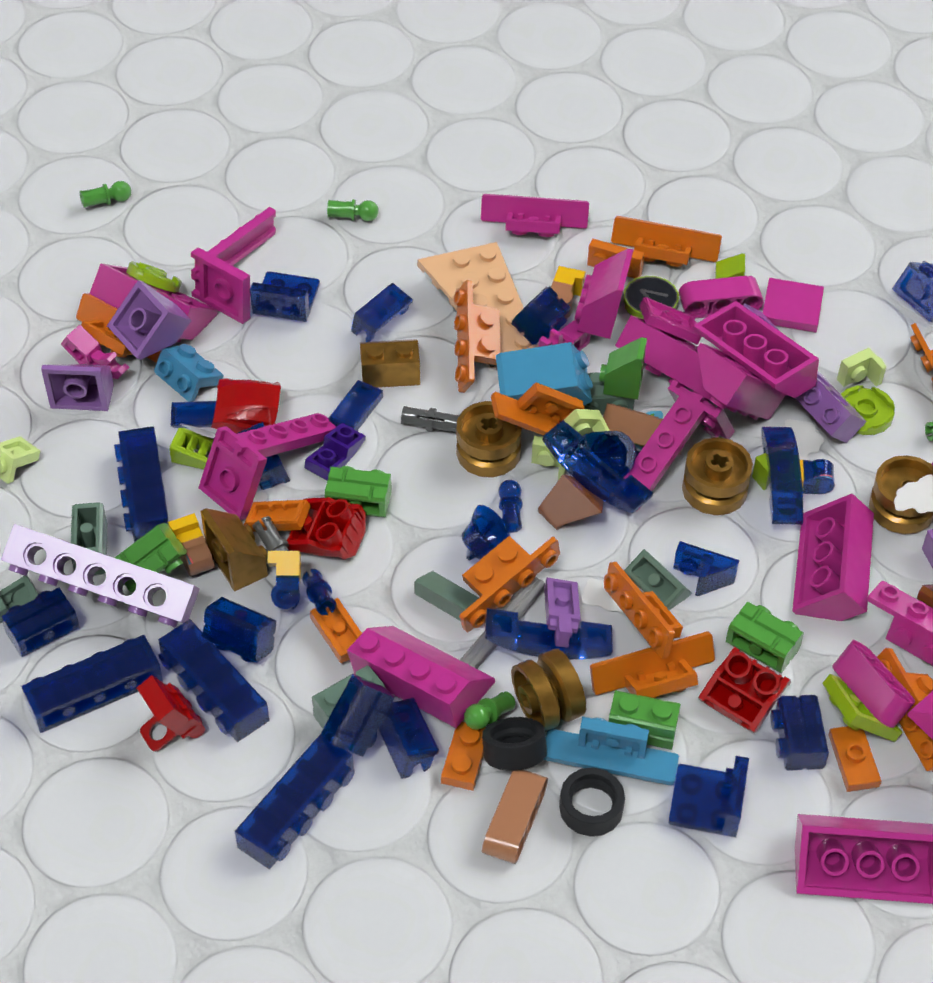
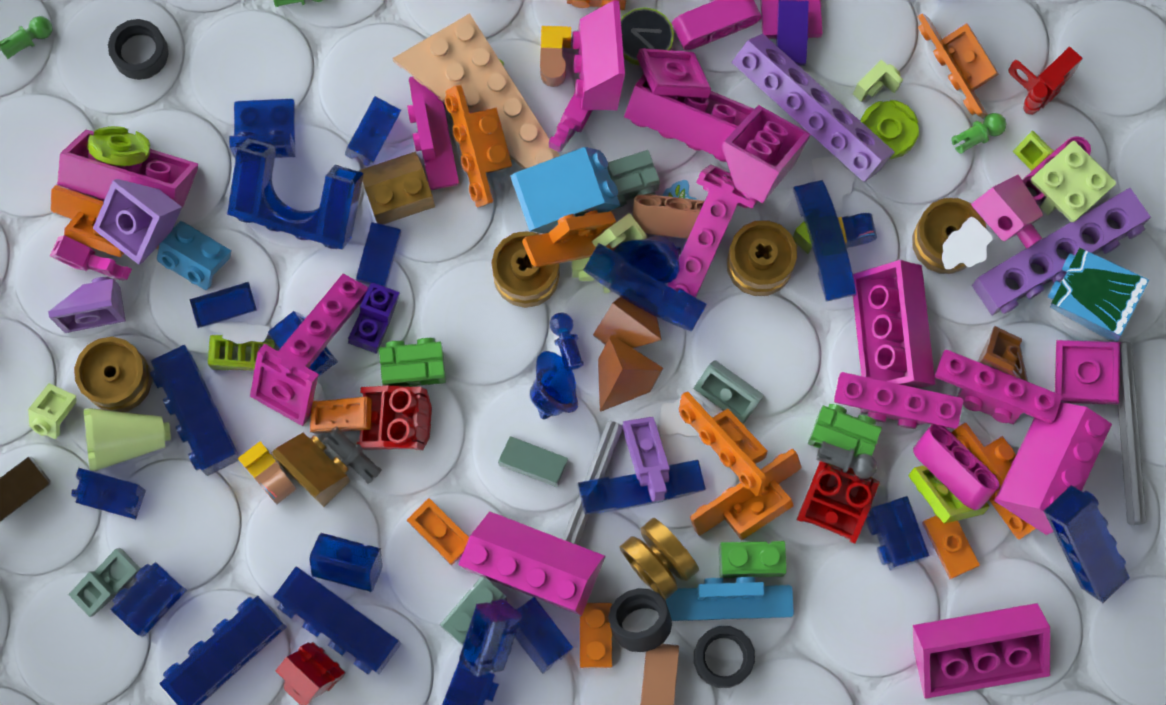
camera: 15 degrees left, 25 degrees up
(24, 544) = (178, 535): brick -> none
(39, 520) = (108, 494): none -> clear blue hinge
(65, 483) = (122, 436): none -> yellowish green cone
(80, 438) = (113, 374): none -> pearl gold wheel
(89, 528) = (164, 495): sand green brick -> none
(154, 551) = (233, 507): bright green brick -> none
(201, 233) = (128, 30): none -> black tyre
(217, 279) = (183, 135): dark pink bracket -> none
(245, 404) = (269, 288): red slope -> none
(259, 337) = (256, 201): none -> clear blue arch
(288, 578) = (377, 500): leg -> none
(319, 592) = (409, 497): clear blue pin -> none
(412, 417) = (459, 253): dark grey pin -> none
(434, 328) = (432, 136): none -> dark pink bracket
(488, 710) = (607, 588): bright green pin -> none
(502, 575) = (579, 436): orange bracket -> none
(541, 316) = (541, 102): clear blue brick -> none
(573, 540) = (624, 374): none -> dark orange slope
(624, 370) = (645, 164): bright green slope -> none
(709, 798) = (829, 625): clear blue bracket -> none
(711, 567) = (779, 368): clear blue slope -> none
(761, 349) = (775, 109): dark pink slope -> none
(776, 656) = (862, 465): none -> dark grey pin
(791, 312) = (793, 29): none -> dark purple slope
(824, 616) = (898, 402): none -> dark pink bracket

